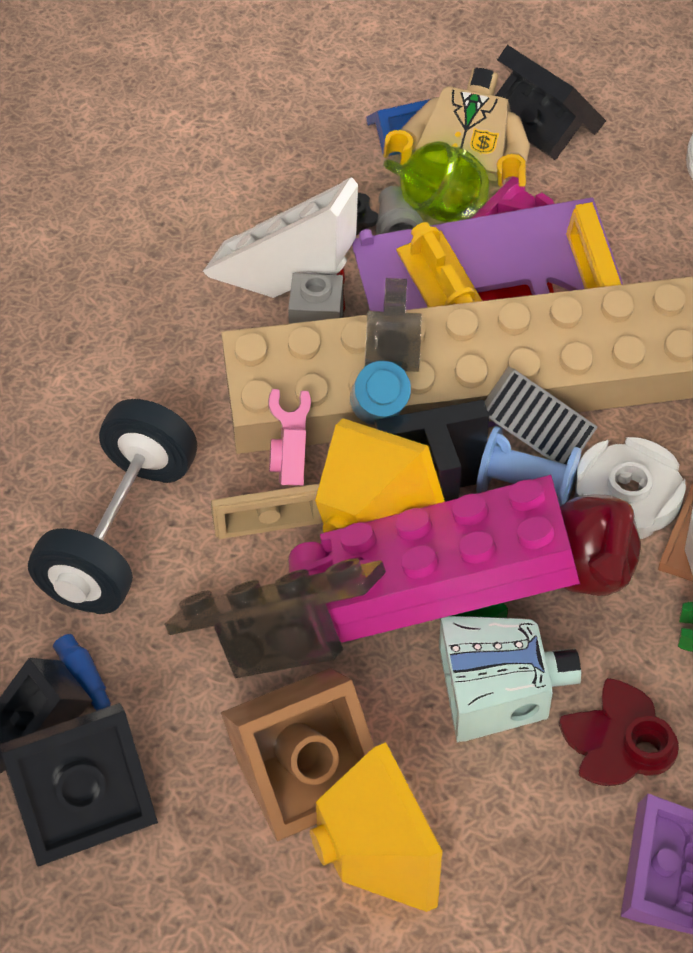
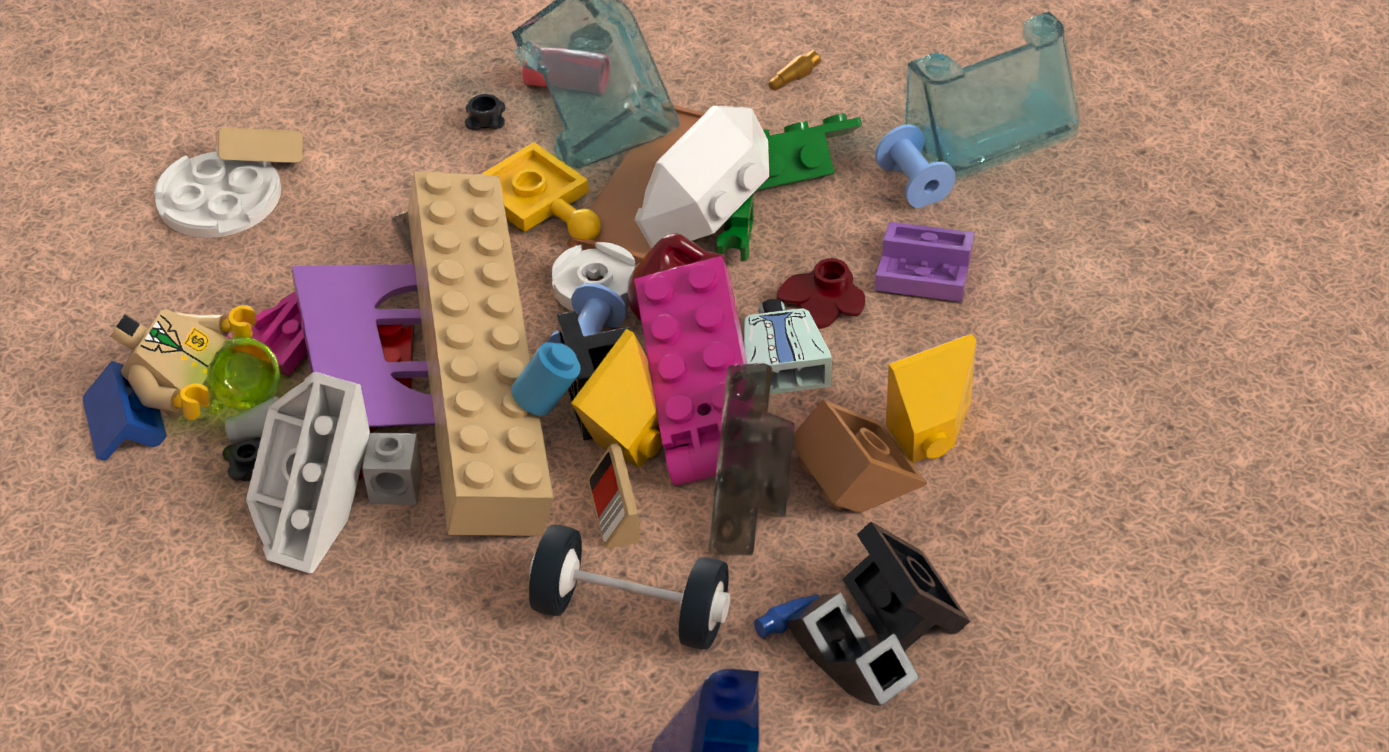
camera: 90 degrees left, 5 degrees down
(288, 453) = (573, 462): bright pink plate -> none
(394, 333) = (484, 365): clear smoke plate -> none
(436, 268) = (381, 370): yellow hinge -> none
(537, 417) = (540, 310): tile -> none
(545, 103) = (137, 297): black bracket -> none
(591, 248) = (374, 265): yellow tile -> none

